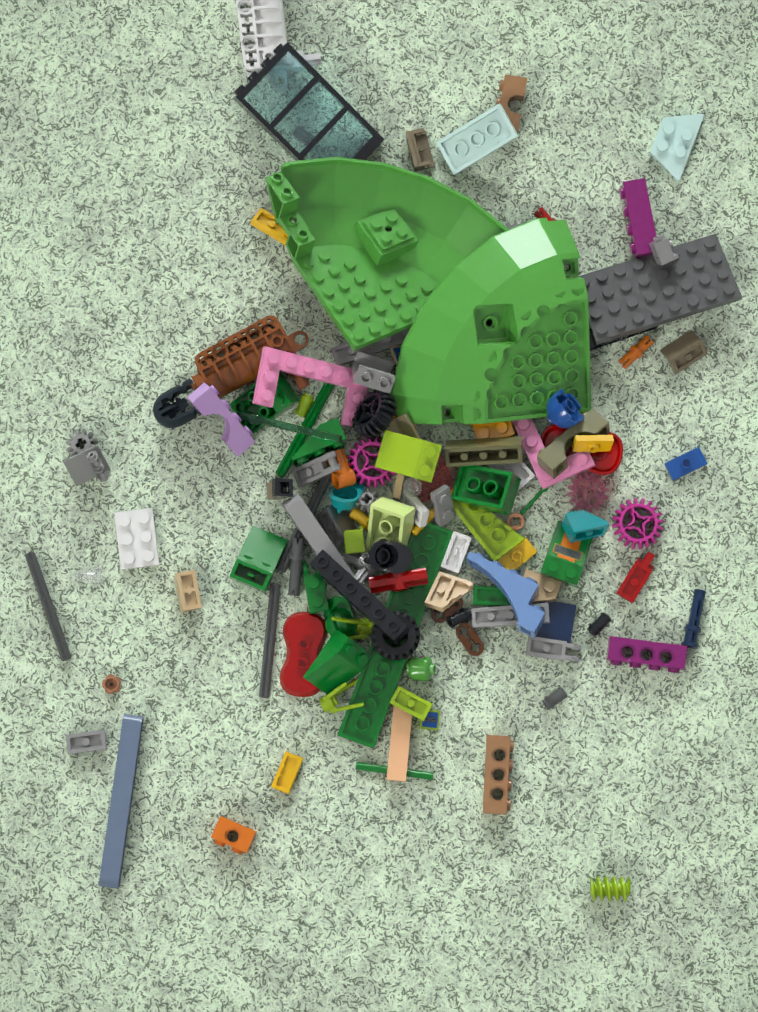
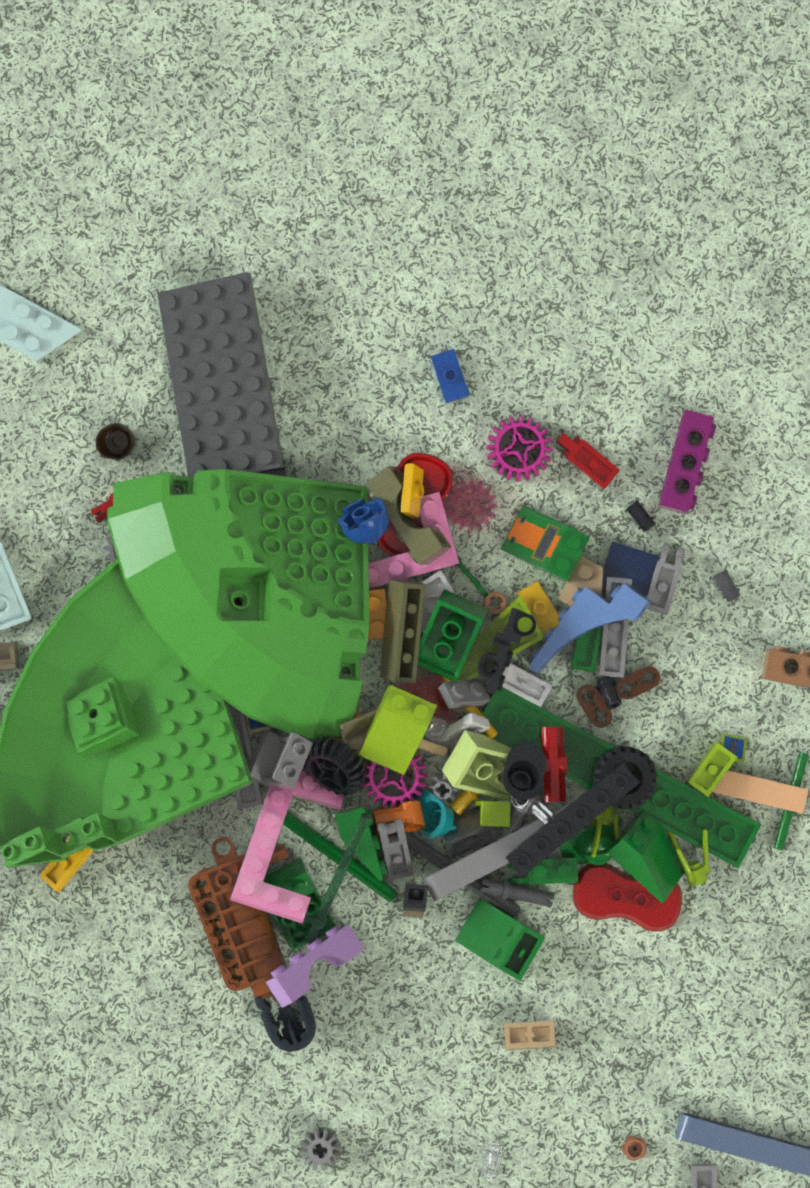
camera: 80 degrees left, 5 degrees up
(87, 466) = (349, 1145): light grey hinge -> none
(136, 539) = (451, 1092): white plate -> none
(269, 643) = (605, 938): dark grey axle -> none
(287, 772) = (776, 938): yellow plate -> none
(304, 405) = (307, 853): lime pin -> none
(420, 668) = (667, 750): bright green head -> none
(446, 591) = (574, 703): tan wing -> none
(478, 529) = (503, 656): none -> black plate
(583, 525) = (513, 518): teal slope -> none
(597, 217) = (115, 441): none -> dark brown hair
(635, 352) = (297, 418): orange pin -> none
(639, 216) = (123, 387): magenta brick -> none
(662, 250) = (172, 363): light grey brick -> none
(684, 351) = (305, 356): dark tan panel -> none
(692, 628) = (661, 399): dark blue pin -> none

